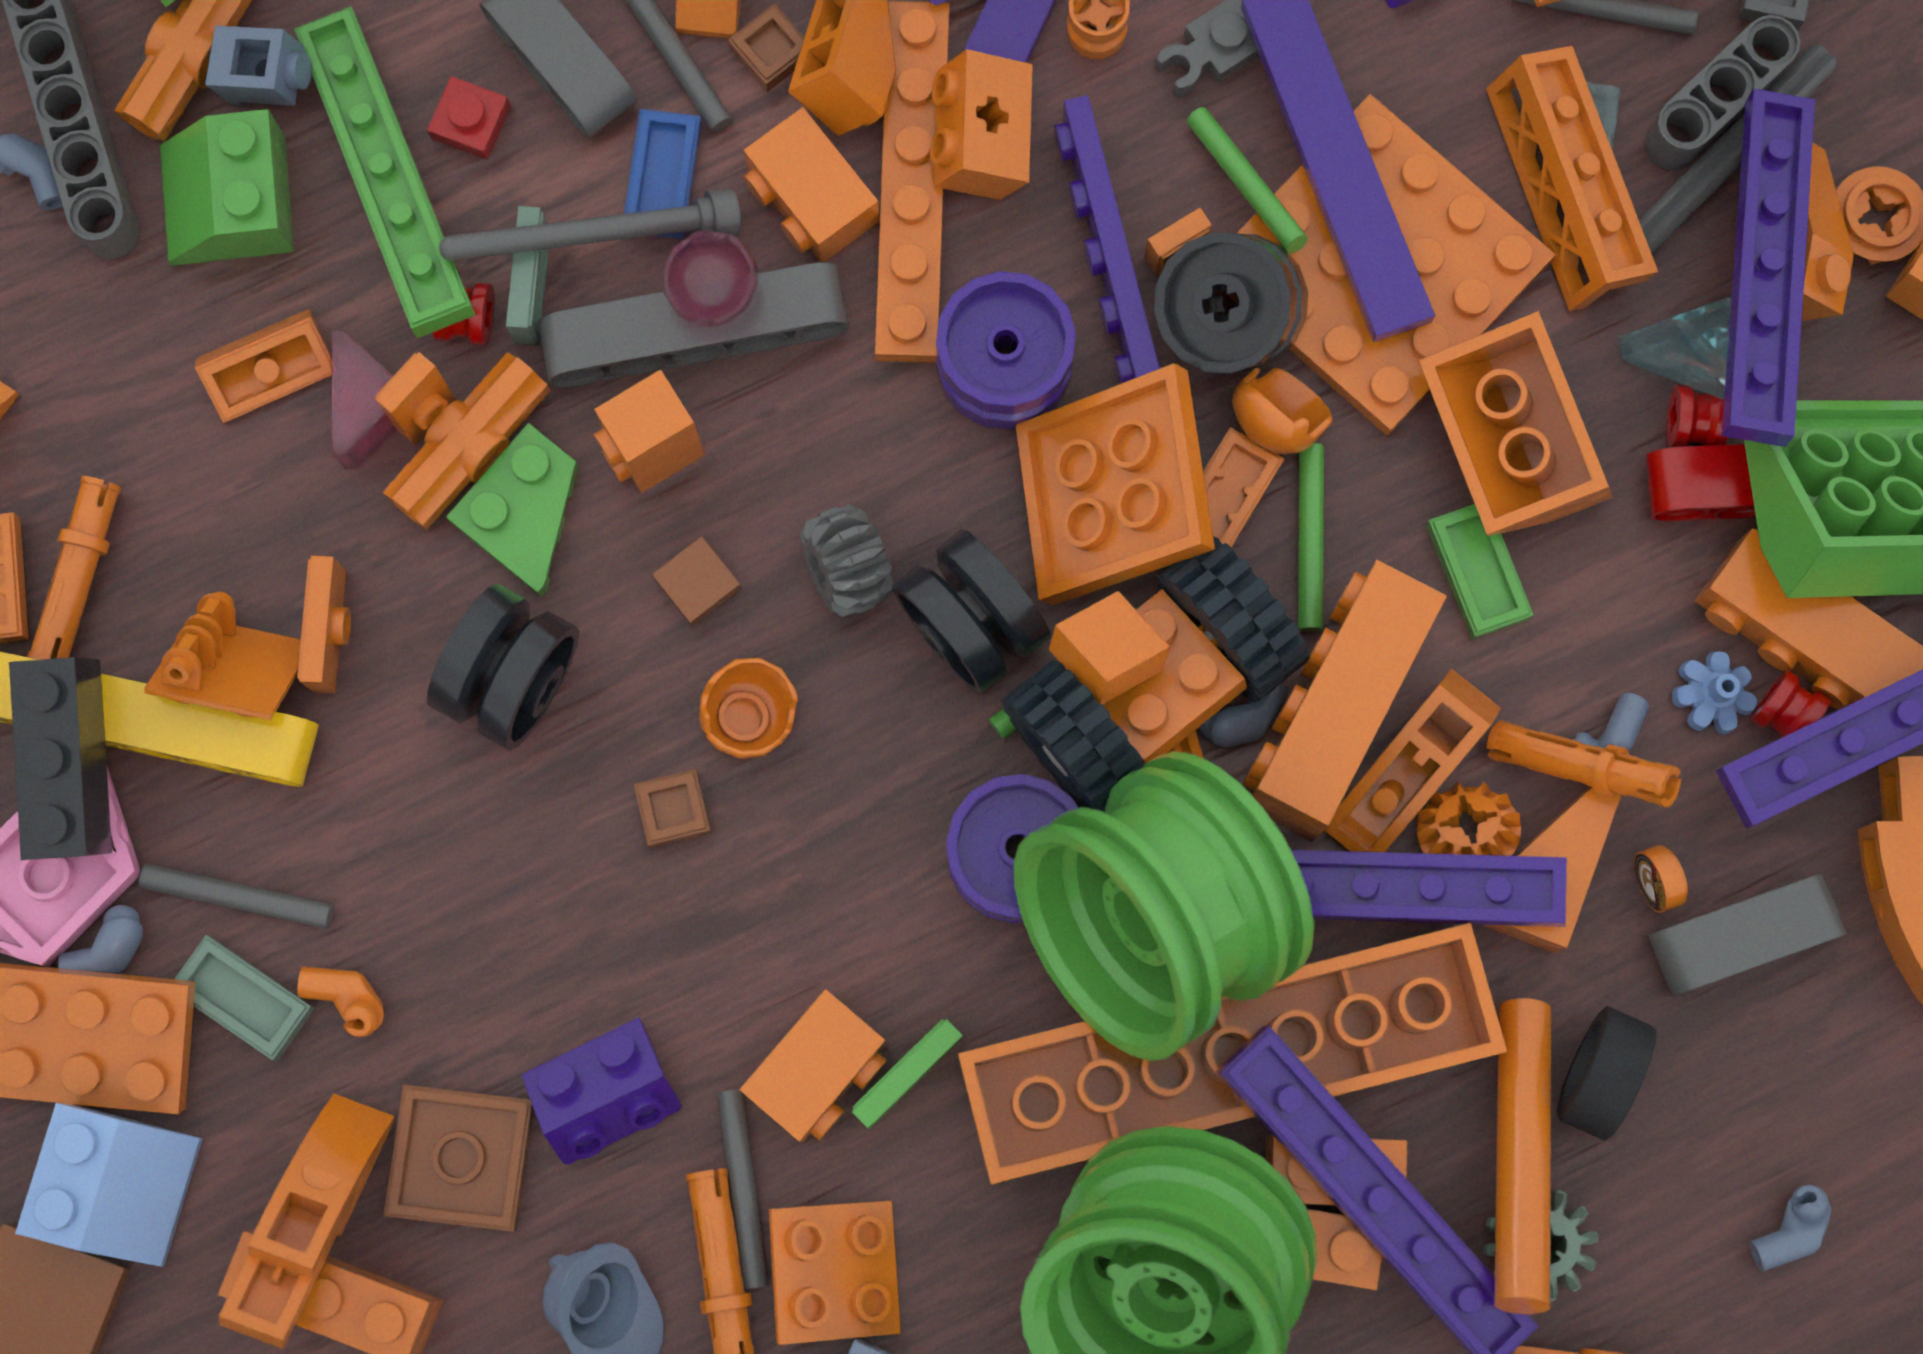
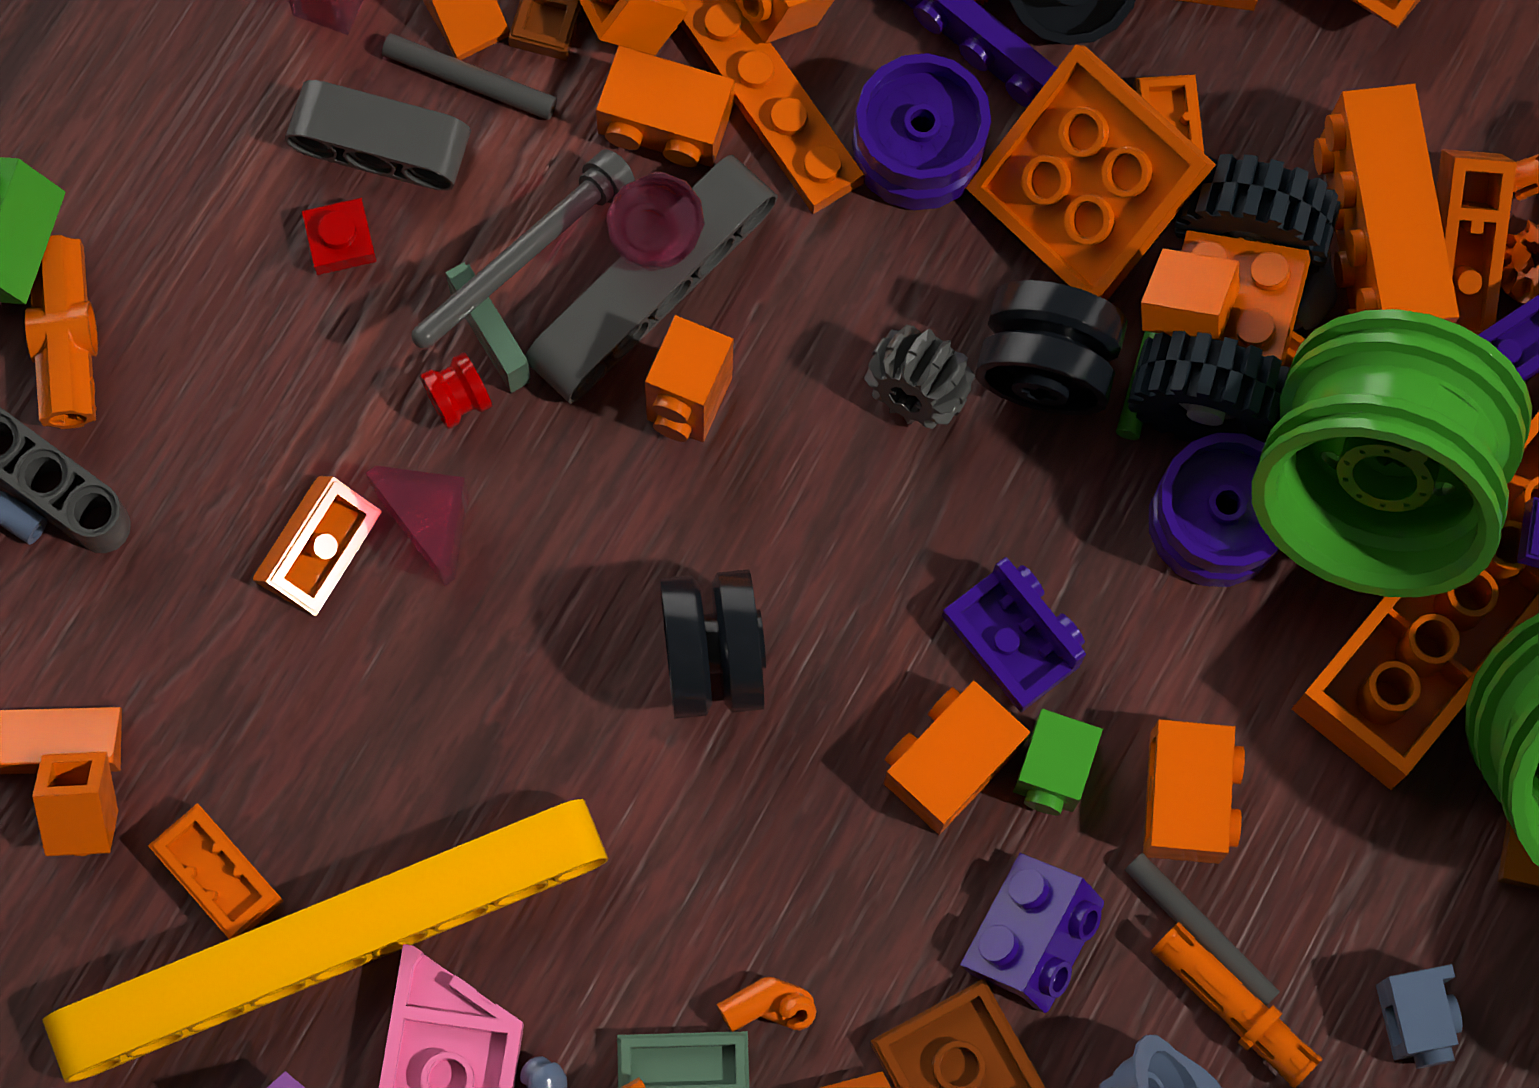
camera: 40 degrees left, 5 degrees down
(60, 758) = (404, 964): black brick -> none
(75, 568) = (277, 798): orange pin -> none
(226, 663) = (477, 800): orange hinge -> none
(227, 189) = (179, 424): bright green slope -> none
(236, 896) = (616, 987): dark grey bar -> none
(257, 66) = (118, 300): sand blue brick -> none
(324, 624) = (530, 715): orange plate -> none
(384, 173) = (309, 320): bright green tile -> none
(415, 397) = (478, 479): orange plate -> none
(466, 440) = (535, 492): orange piece -> none
(520, 507) = (617, 517): bright green wing -> none
(641, 899) = (954, 756): none -> orange brick
(663, 162) = (526, 169): blue tile -> none
(672, 808) = (919, 671): dark orange tile -> none
(696, 581) = (804, 479): dark orange tile -> none
(721, 965) = (1057, 763): none -> bright green brick
(748, 708) = (926, 546): orange hair -> none
(766, 833) = (1016, 633): none -> dark purple bracket
(834, 1272) = (1323, 943): orange hinge -> none
(907, 1073) = (1265, 746): bright green tile -> none
(1279, 411) = (1165, 41): orange hair -> none
(1311, 539) = (1246, 109): bright green bar -> none
(1478, 573) = (1401, 58): bright green tile -> none

